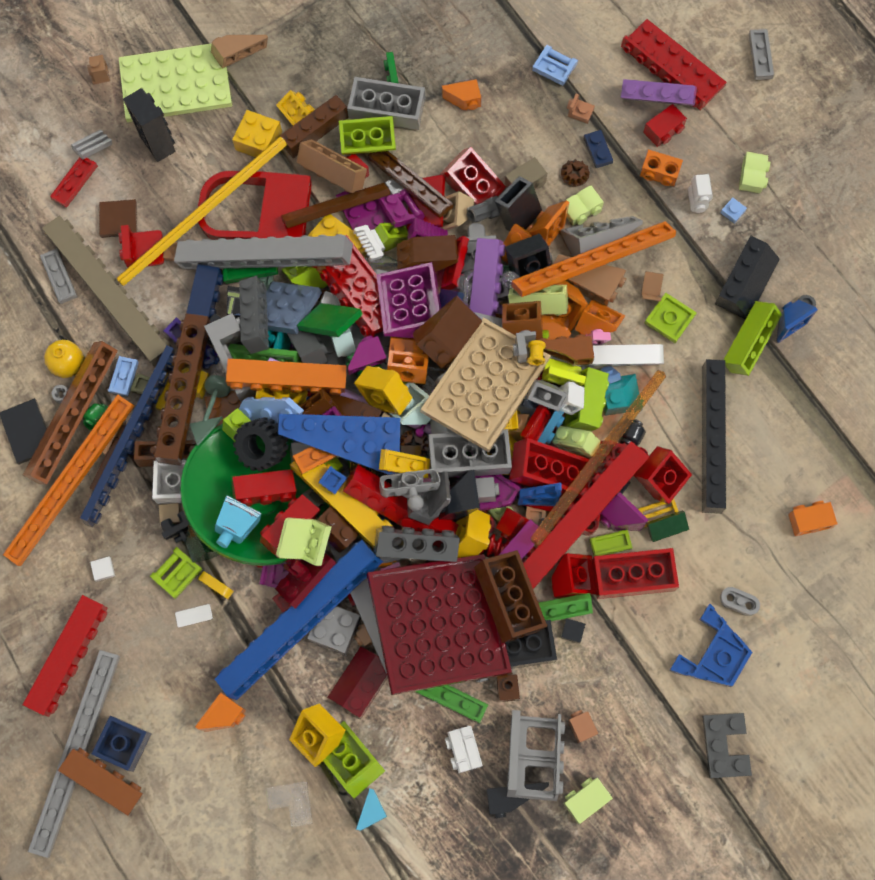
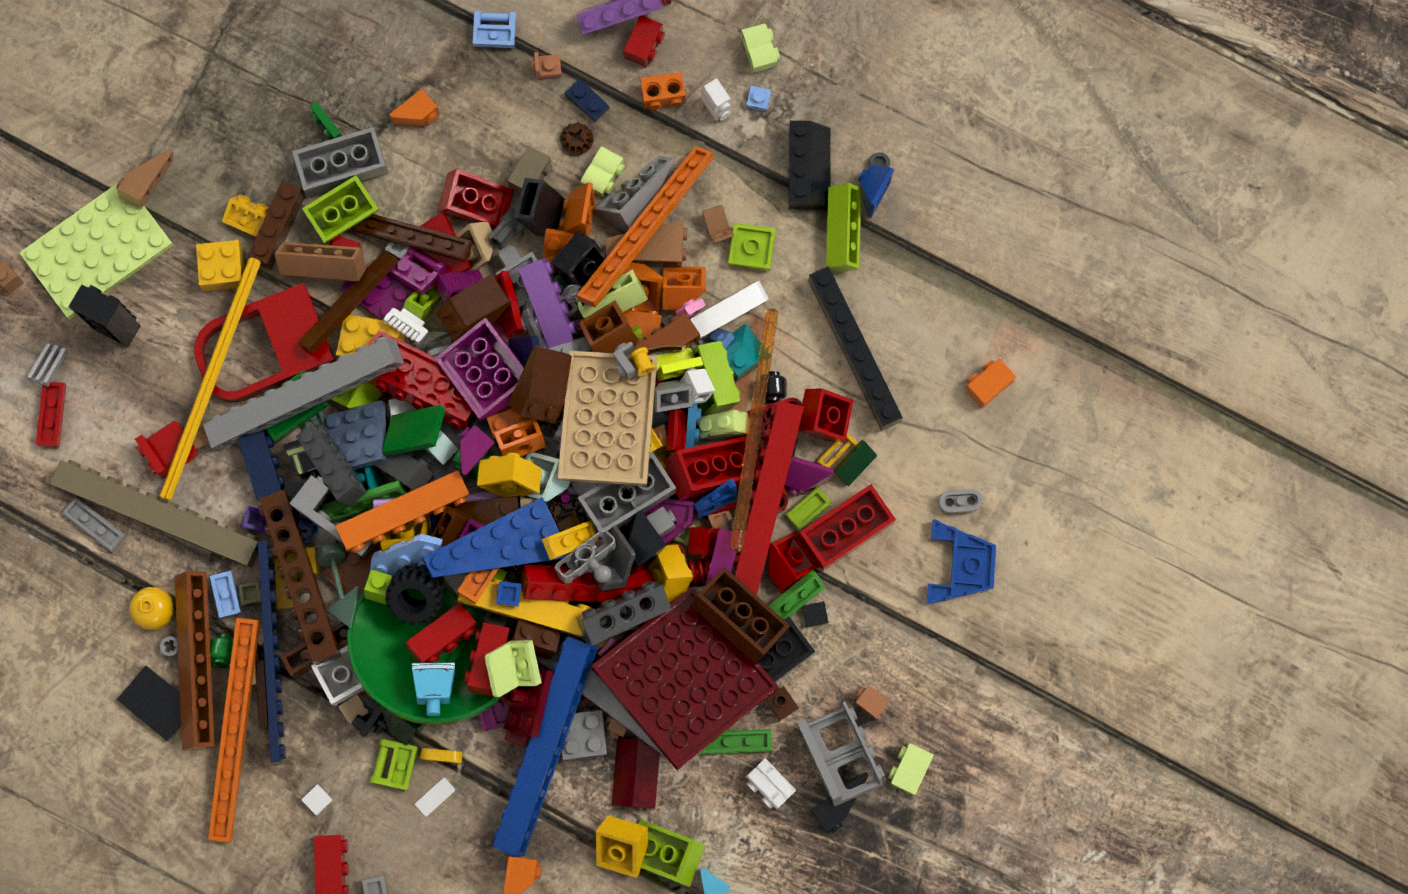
camera: 30 degrees left, 5 degrees up
(114, 215) = (120, 429): reddish brown tile -> none
(715, 732) = (1016, 666): dark grey plate -> none

